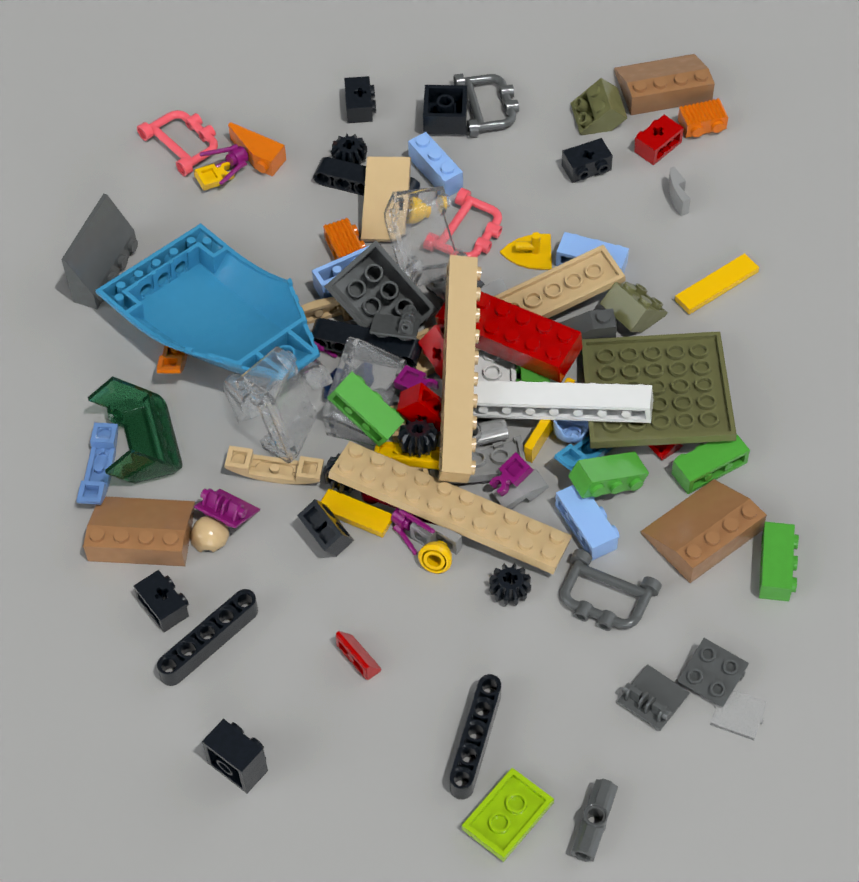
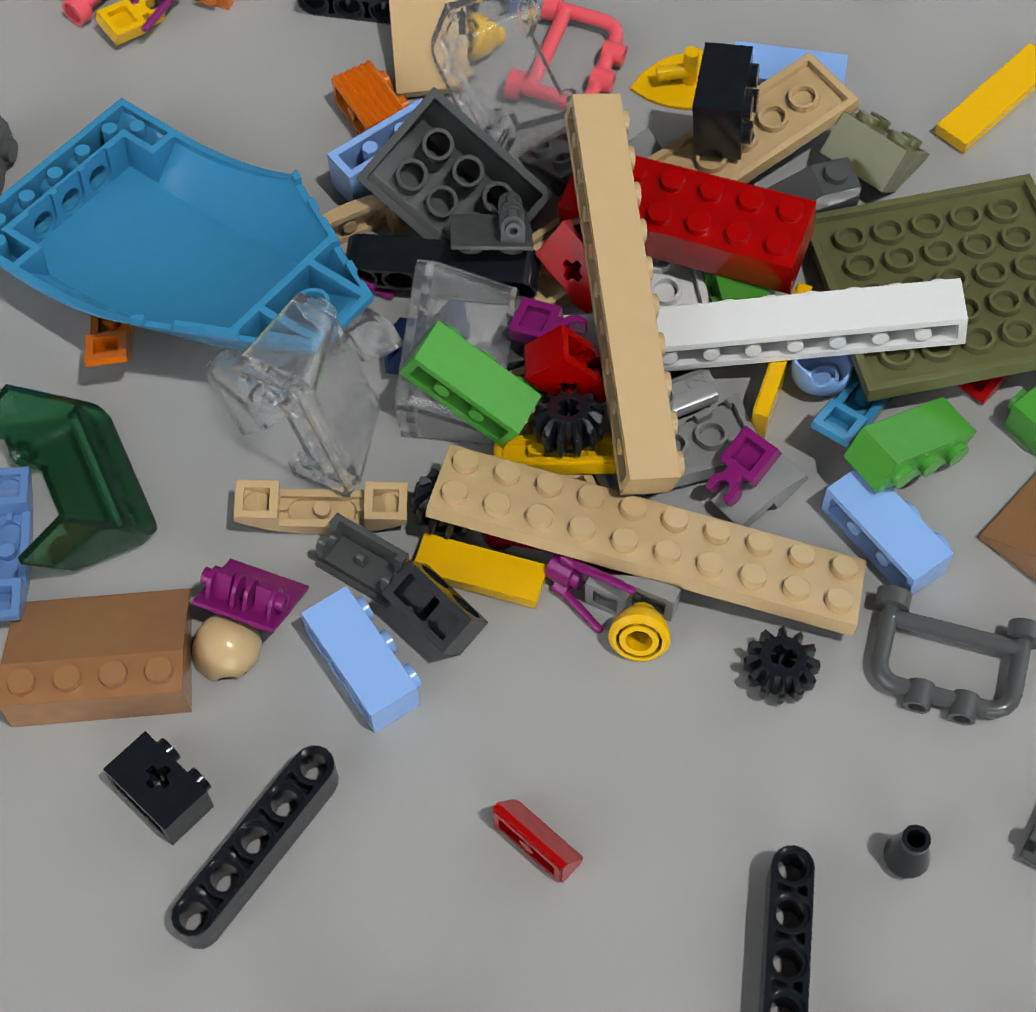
camera: 10 degrees left, 5 degrees up
(281, 549) = (362, 658): none -> light blue brick
(289, 496) = (360, 558): none -> dark grey hinge
(542, 268) = (725, 100): none -> black brick
(556, 688) = (908, 852): none -> black cone

